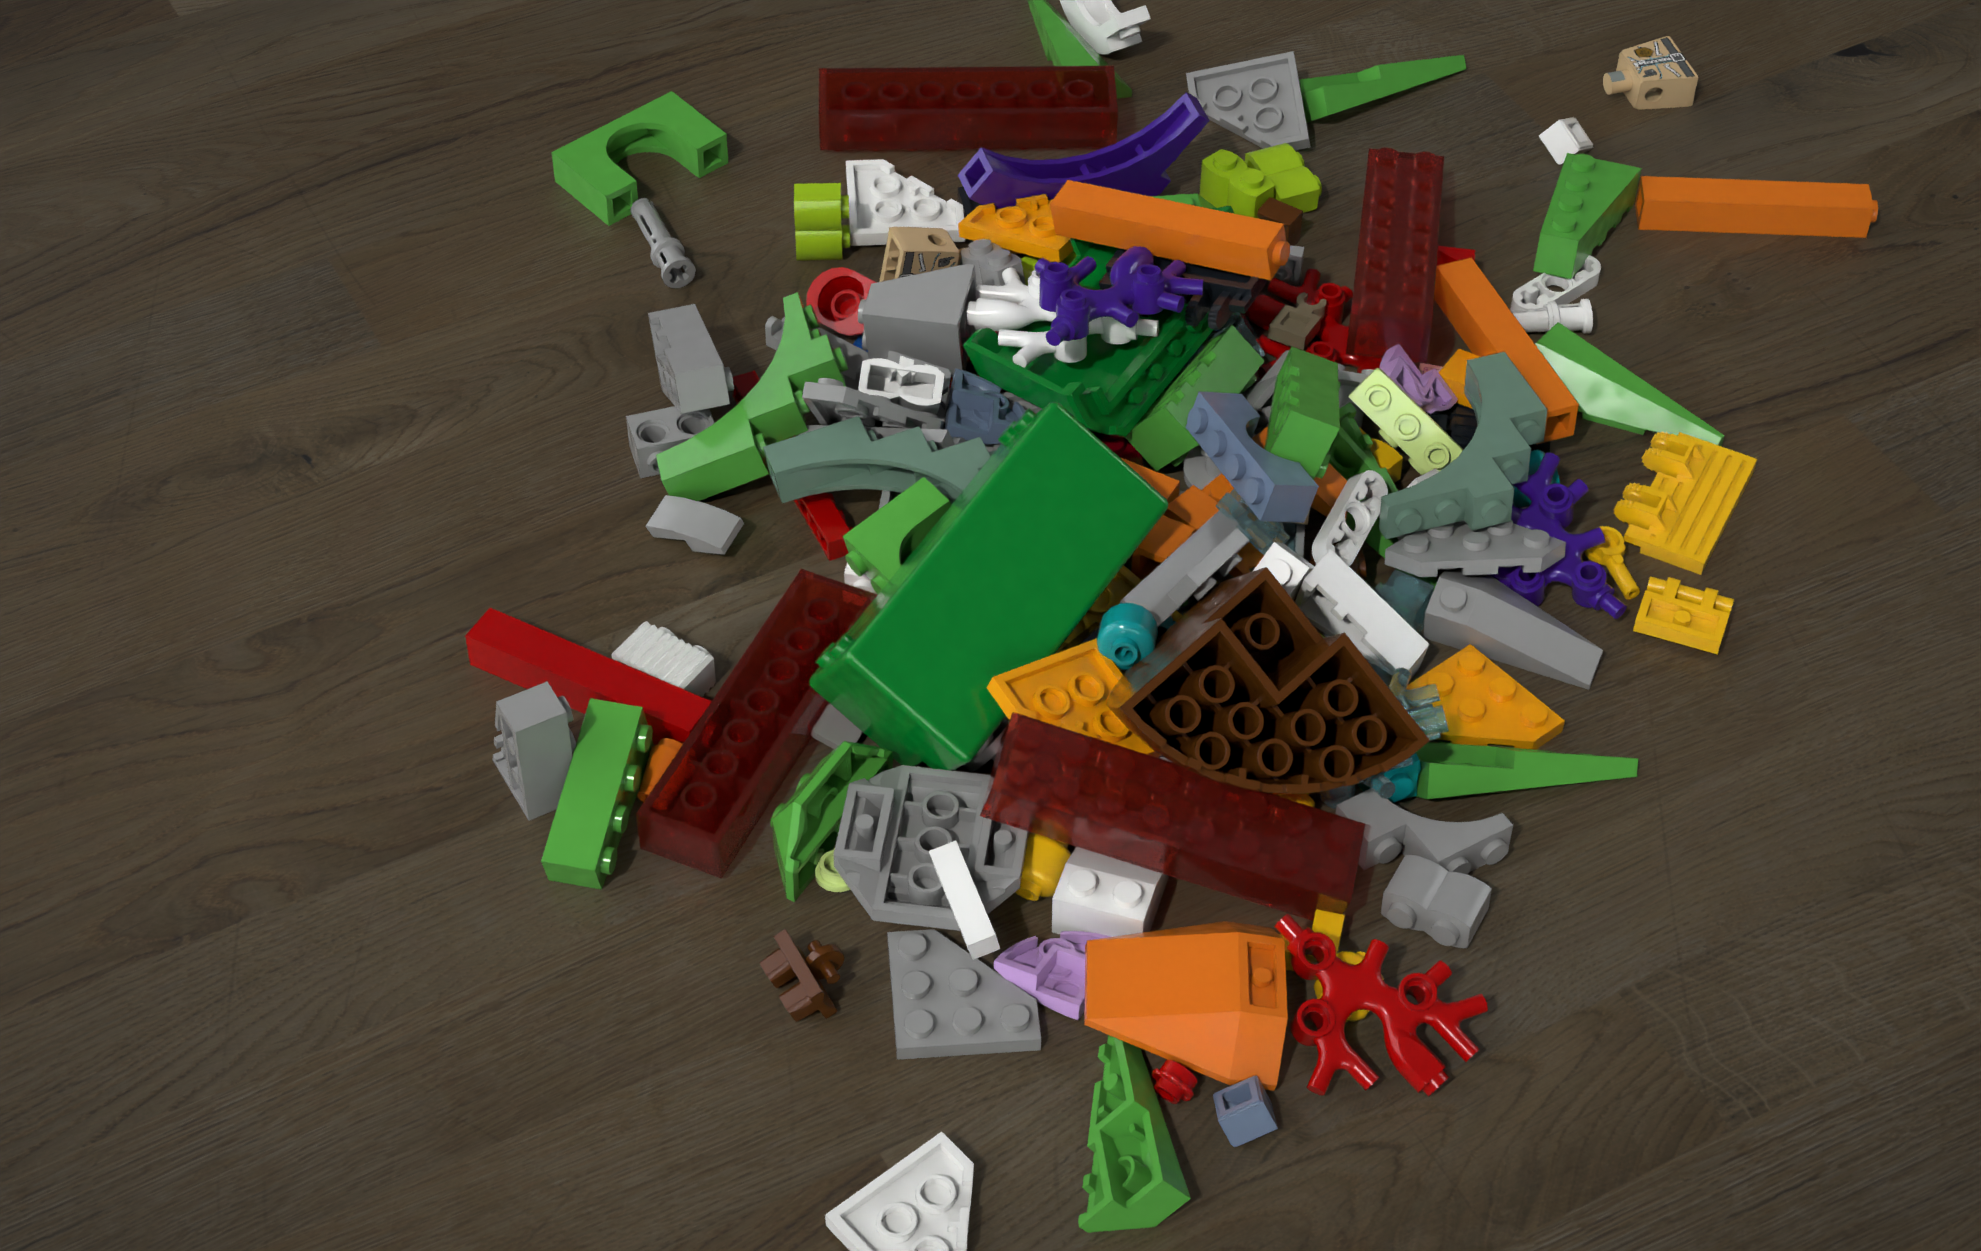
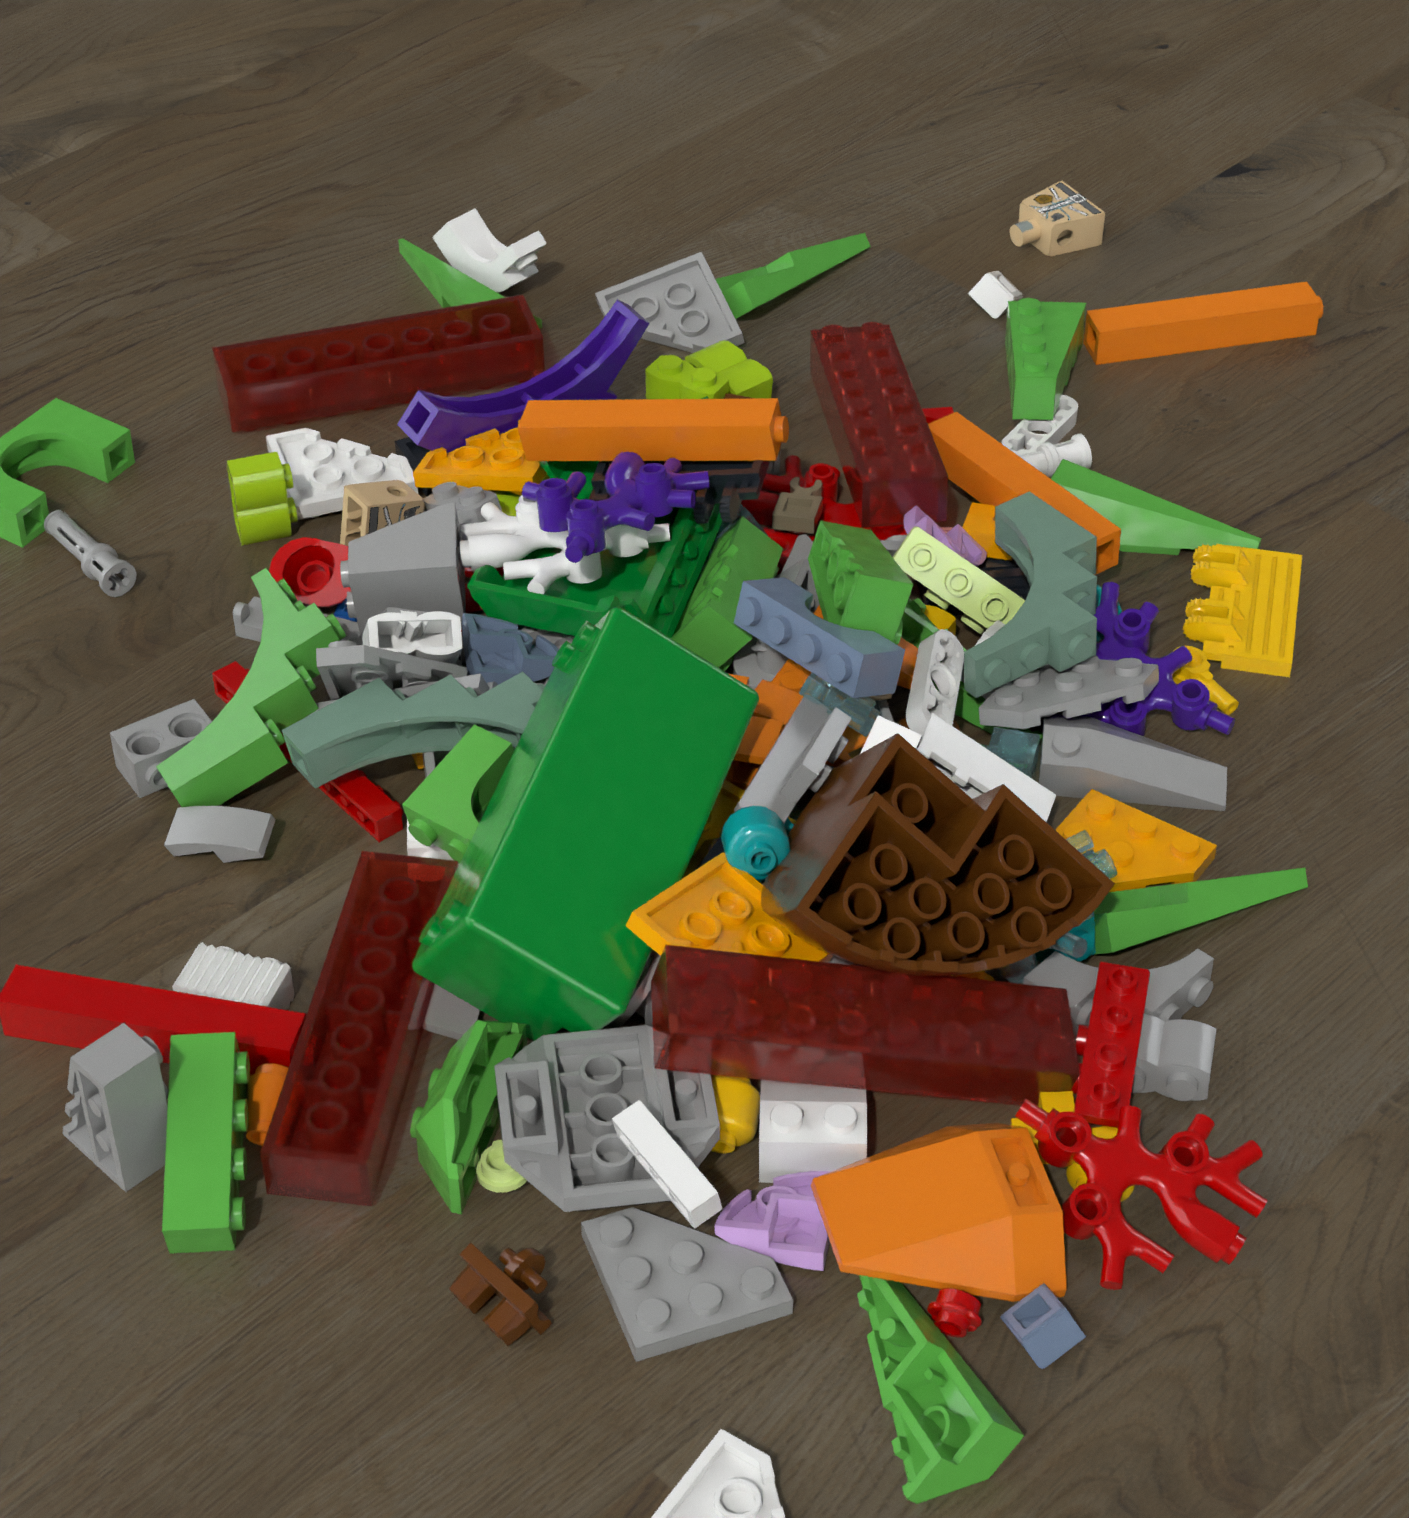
camera: 15 degrees left, 5 degrees down
(688, 361) = (164, 661): light grey wedge -> none
(1390, 880) = (1110, 1043): none -> red bracket
(1683, 614) = (1292, 717): yellow plate -> none

